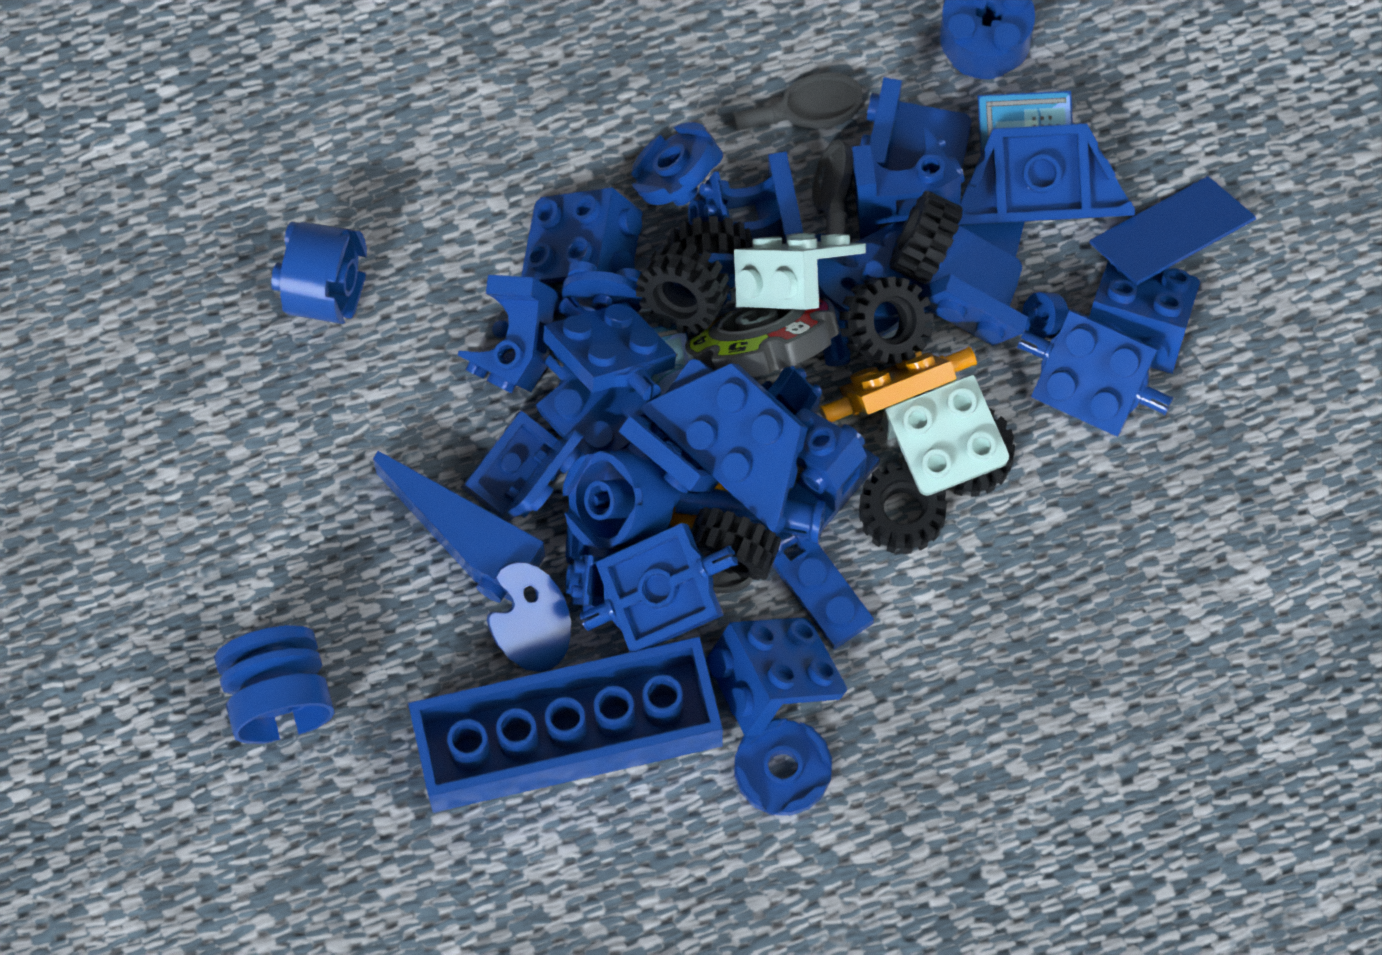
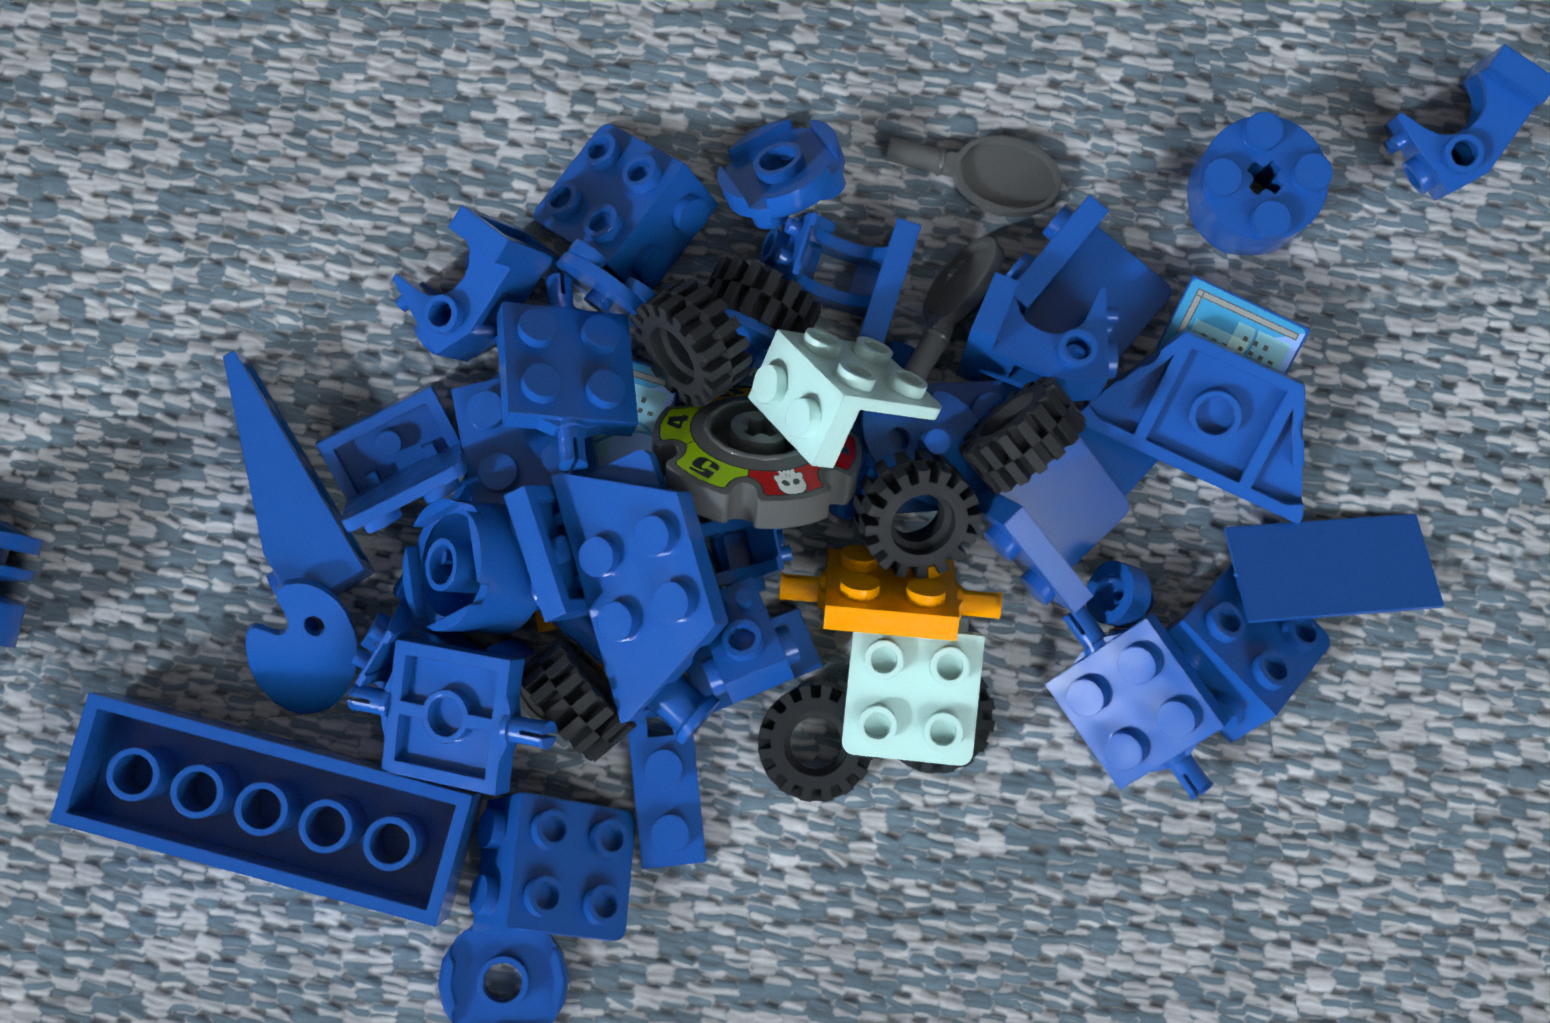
camera: 25 degrees right, 15 degrees up
(320, 272) = (289, 86): blue brick -> none

